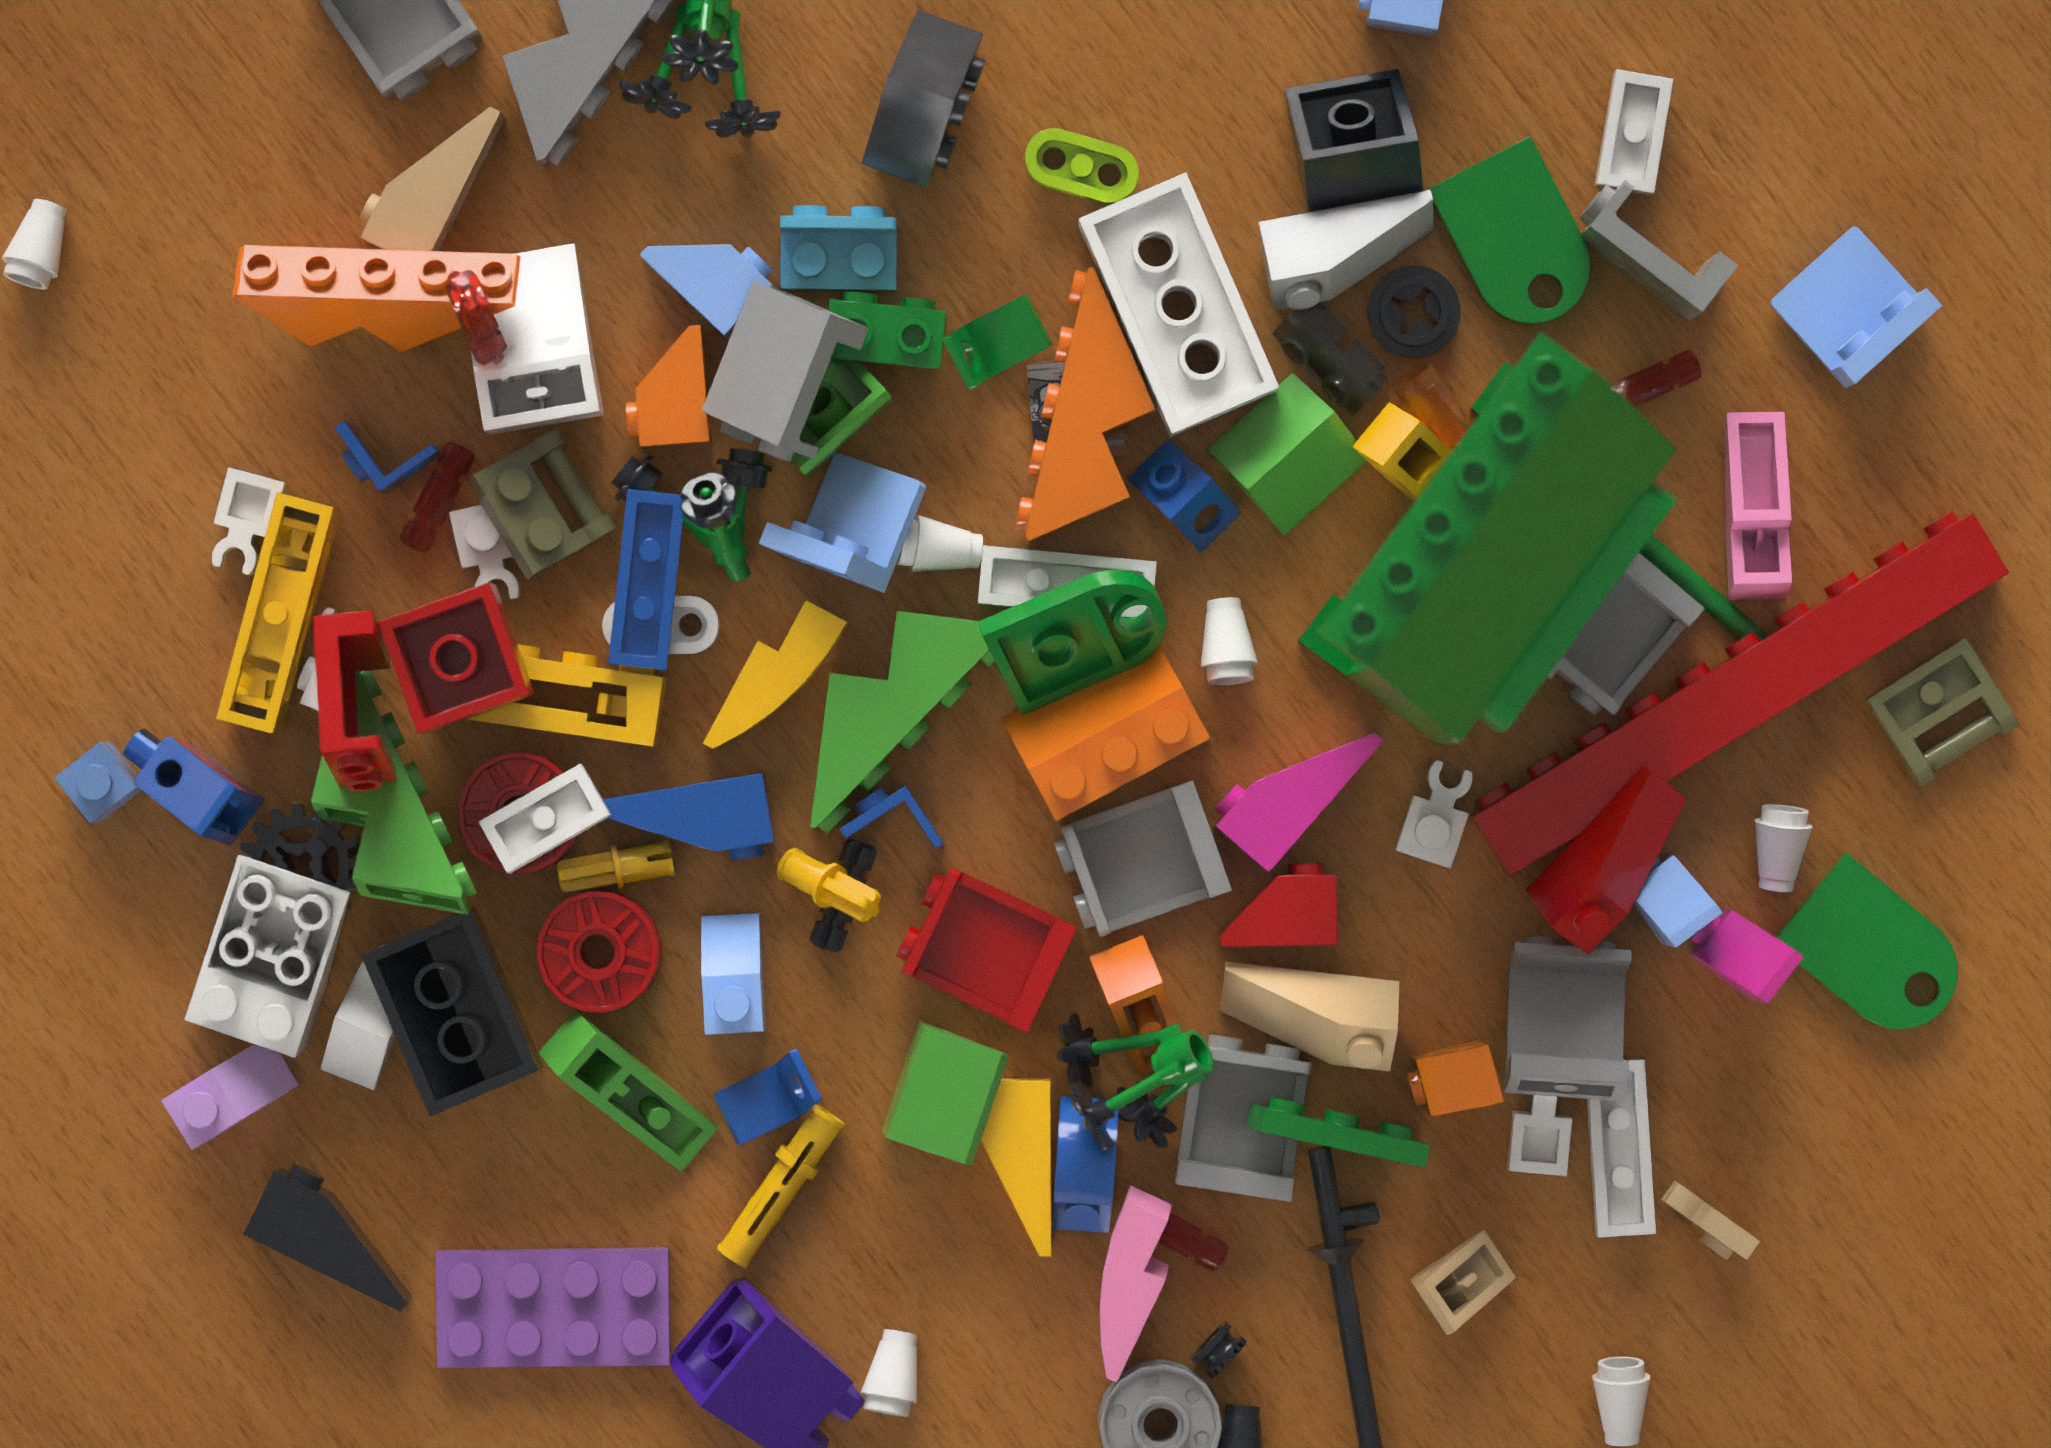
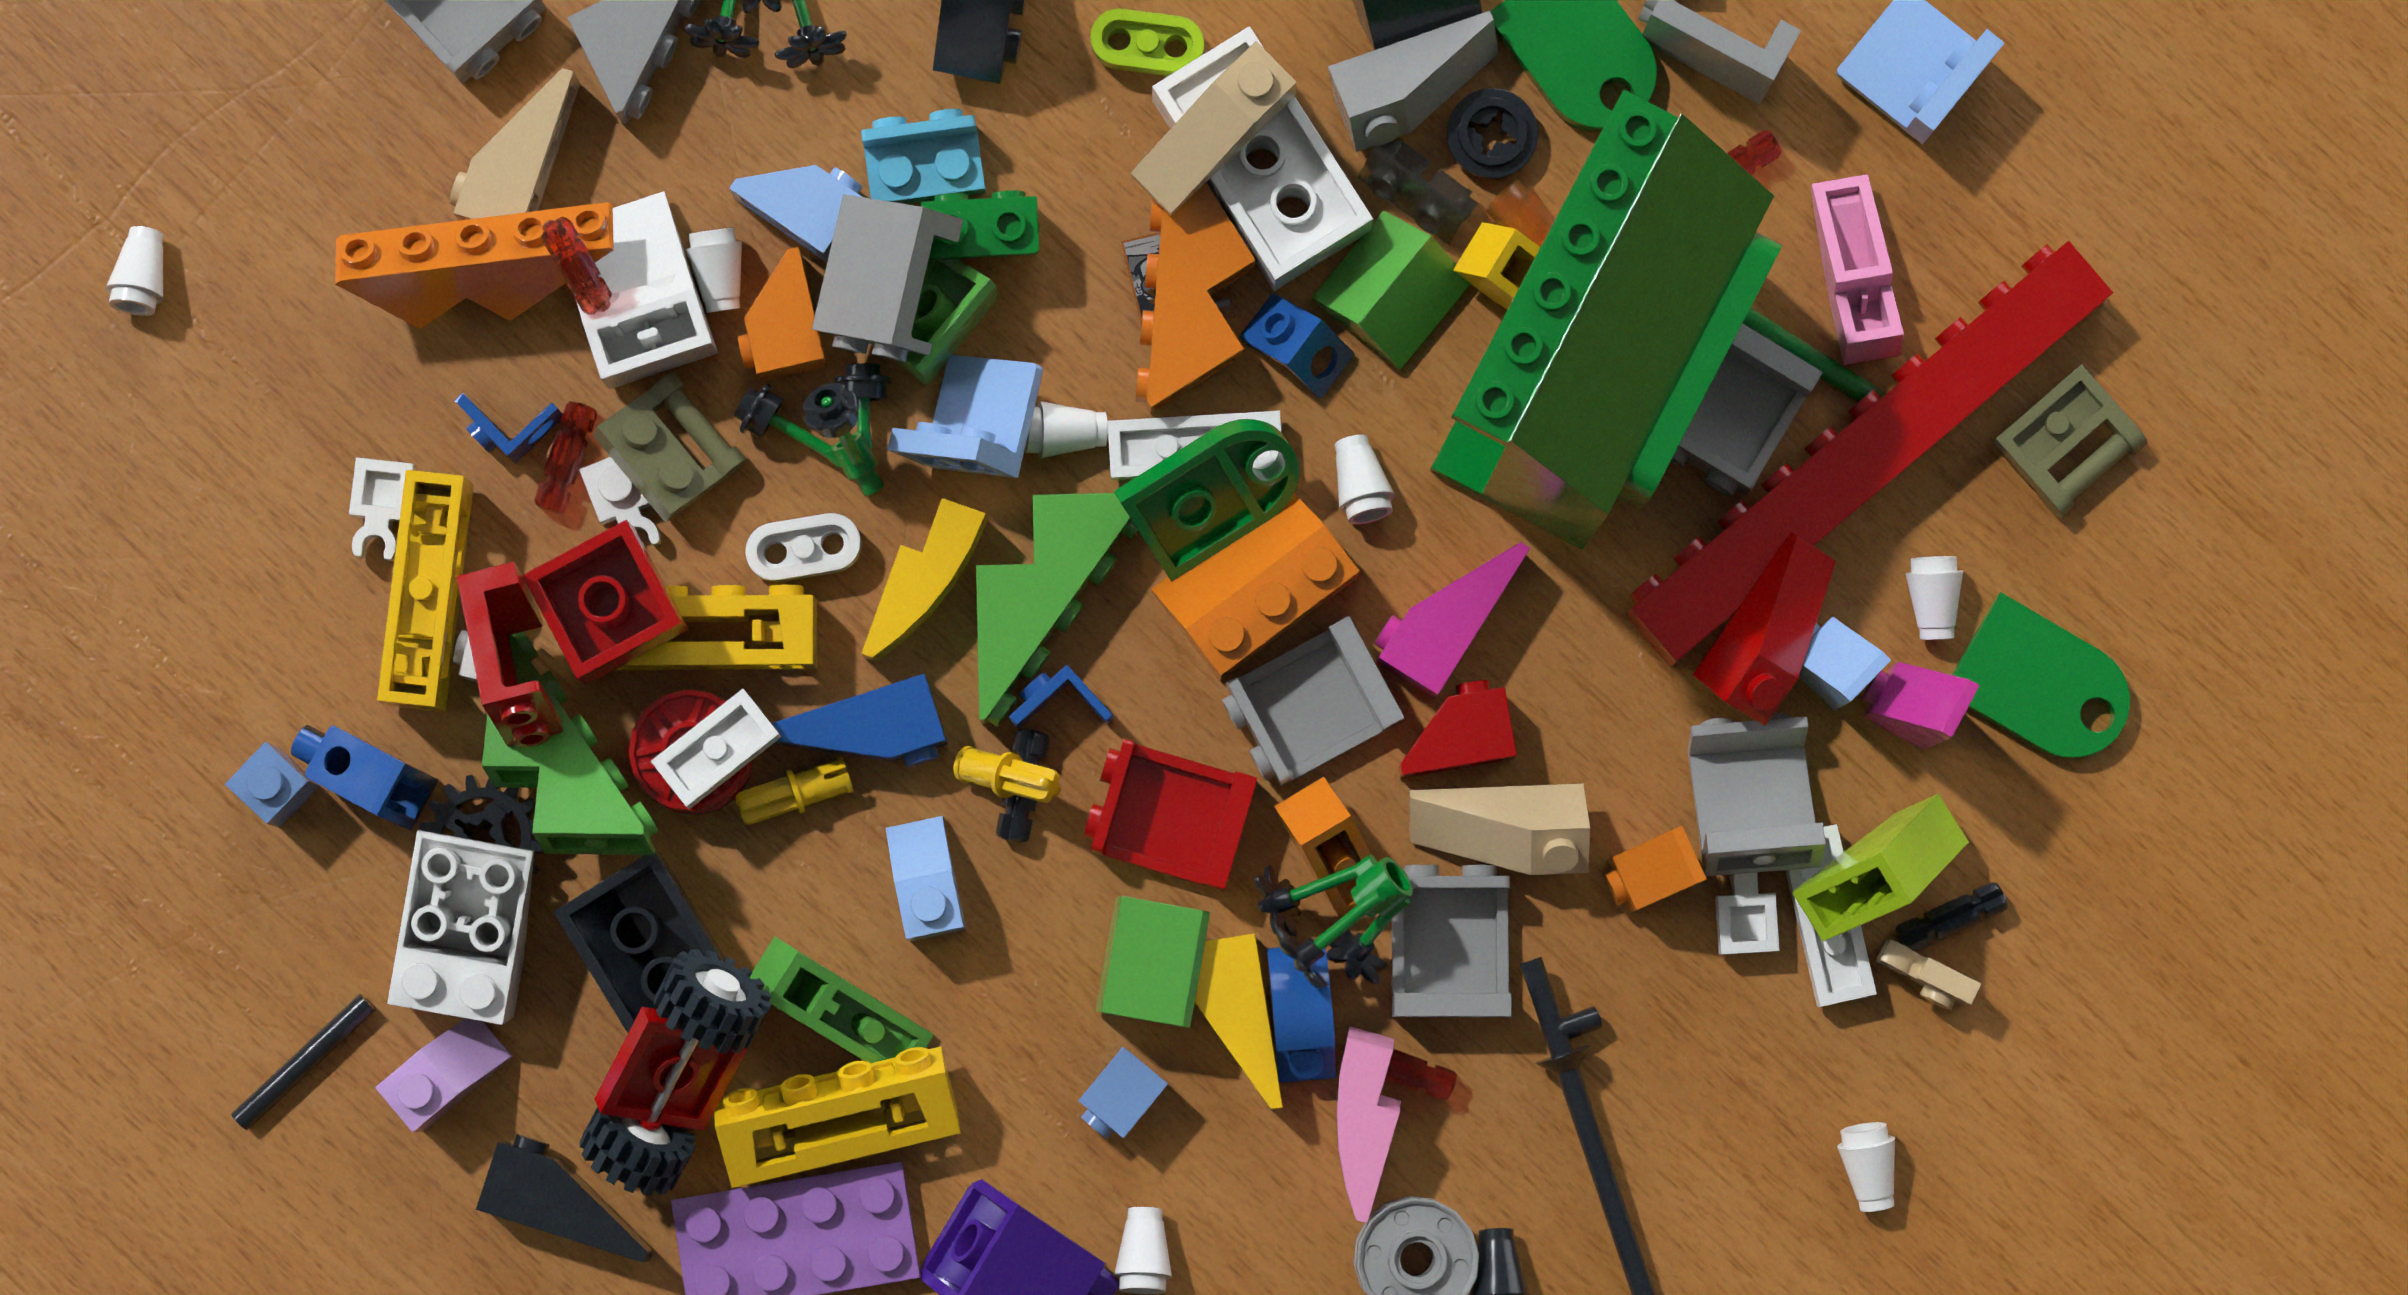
camera: 15 degrees left, 5 degrees down
(93, 1059) = (303, 1061): none -> black bar
(359, 1035) = (564, 996): white slope -> none
(457, 1132) = (673, 1071): none -> plate
(564, 960) = (754, 870): red wheel -> none
(610, 1195) = (836, 1115): none -> yellow brick
(615, 329) = (717, 267): none -> white cone
(646, 580) = (782, 501): blue plate -> none
(768, 1099) = (979, 996): blue bracket -> none
(819, 1128) = (975, 1145): yellow pin -> none
(894, 1217) = (1120, 1095): none -> medium blue brick
(997, 341) = (1091, 221): green bracket -> none
(1134, 274) = (1215, 128): none -> tan slope
(1217, 1348) = (1462, 1177): black bush -> none
(1338, 1131) = (1547, 940): green plate -> none
(1432, 825) = (1591, 628): white plate -> none
(1463, 1281) = (1693, 1072): tan slope -> none
(1682, 1113) = (1882, 869): none -> lime slope
(1743, 1168) = (1952, 917): none -> black axle

